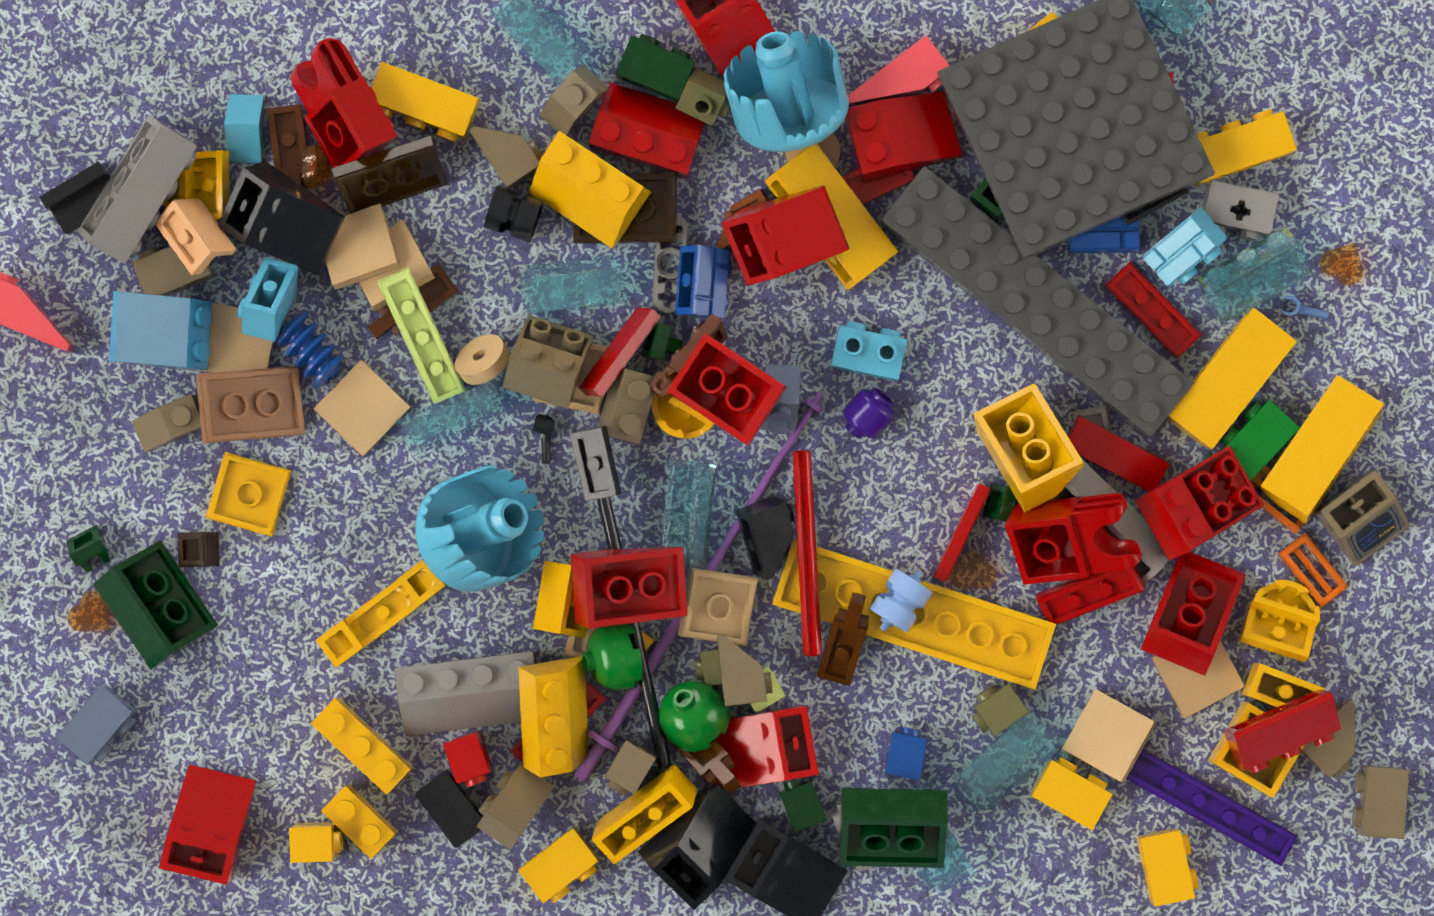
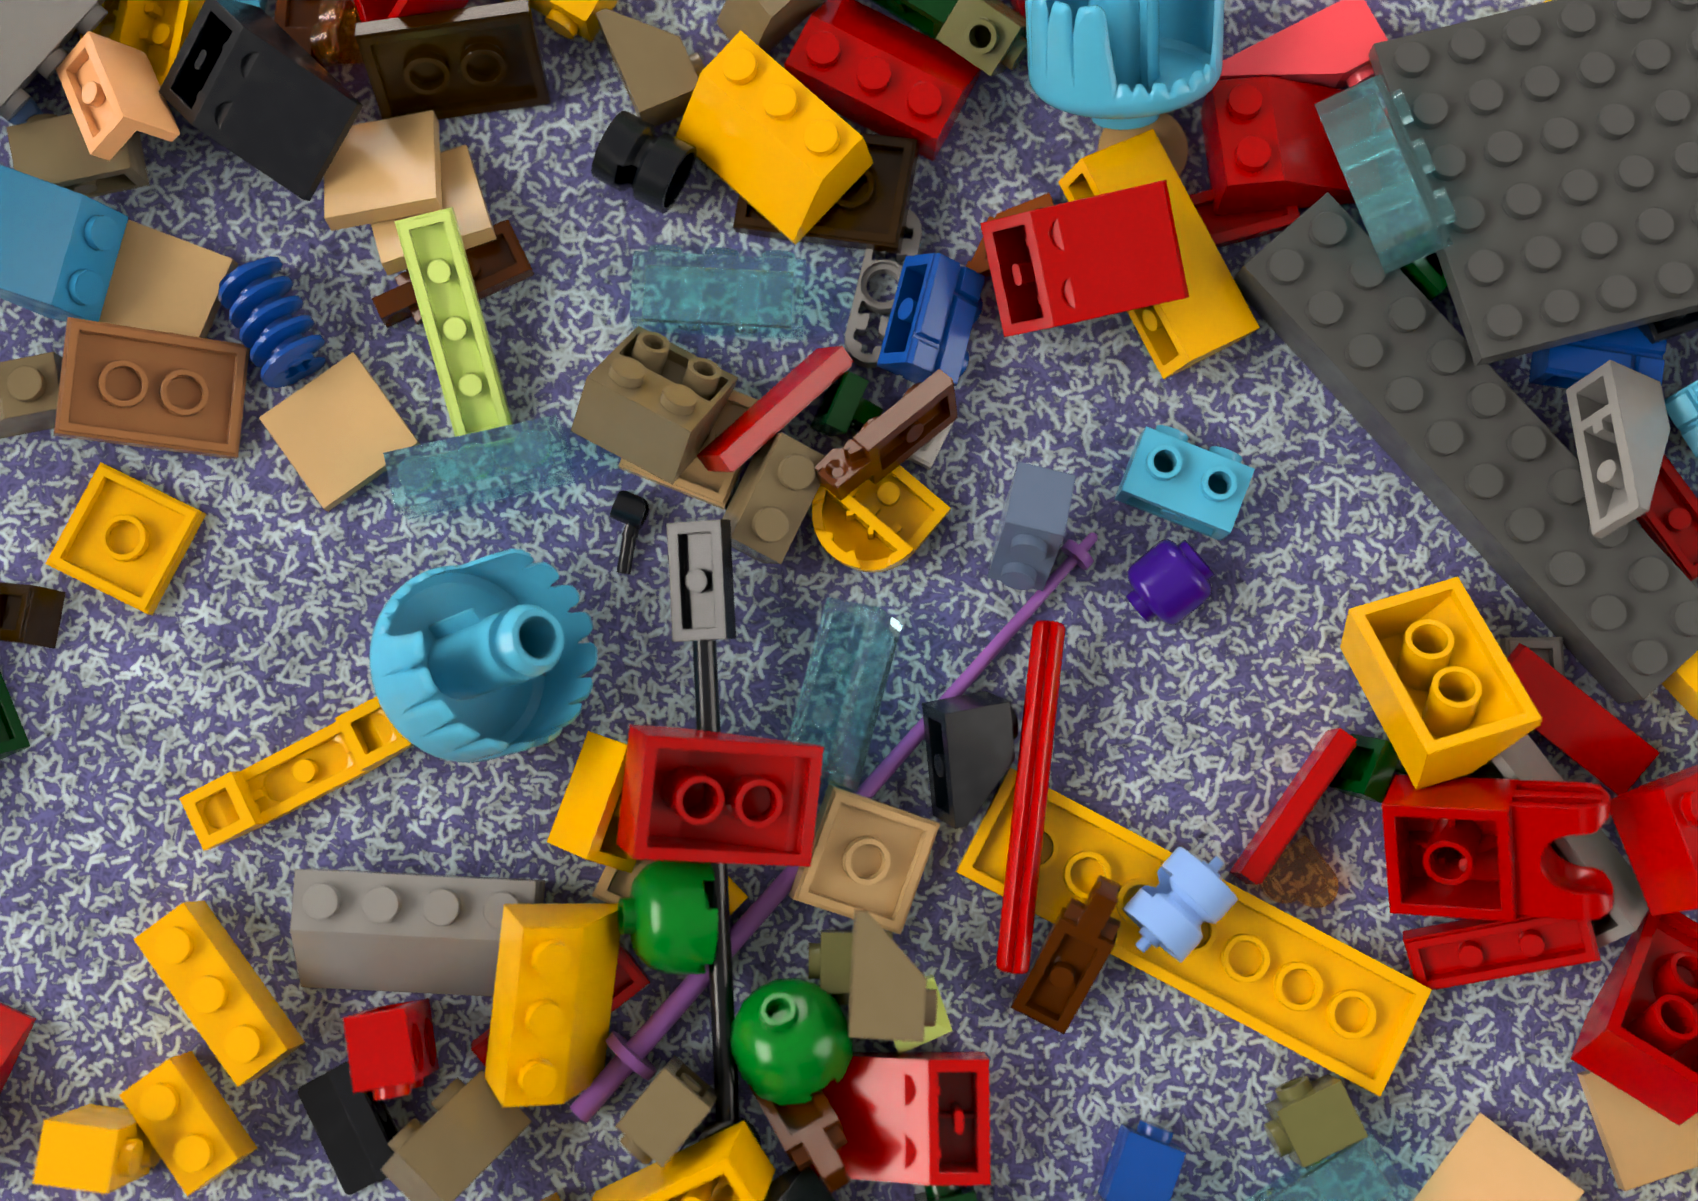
camera: 10 degrees right, 5 degrees down
(269, 299) = (215, 222): medium azure brick -> none
(482, 359) = (546, 383): tan piece -> none
(726, 389) = (945, 490): red slope -> none
(953, 154) = (1387, 172): none -> clear light blue brick
(1114, 283) = (1619, 442): none -> light grey slope

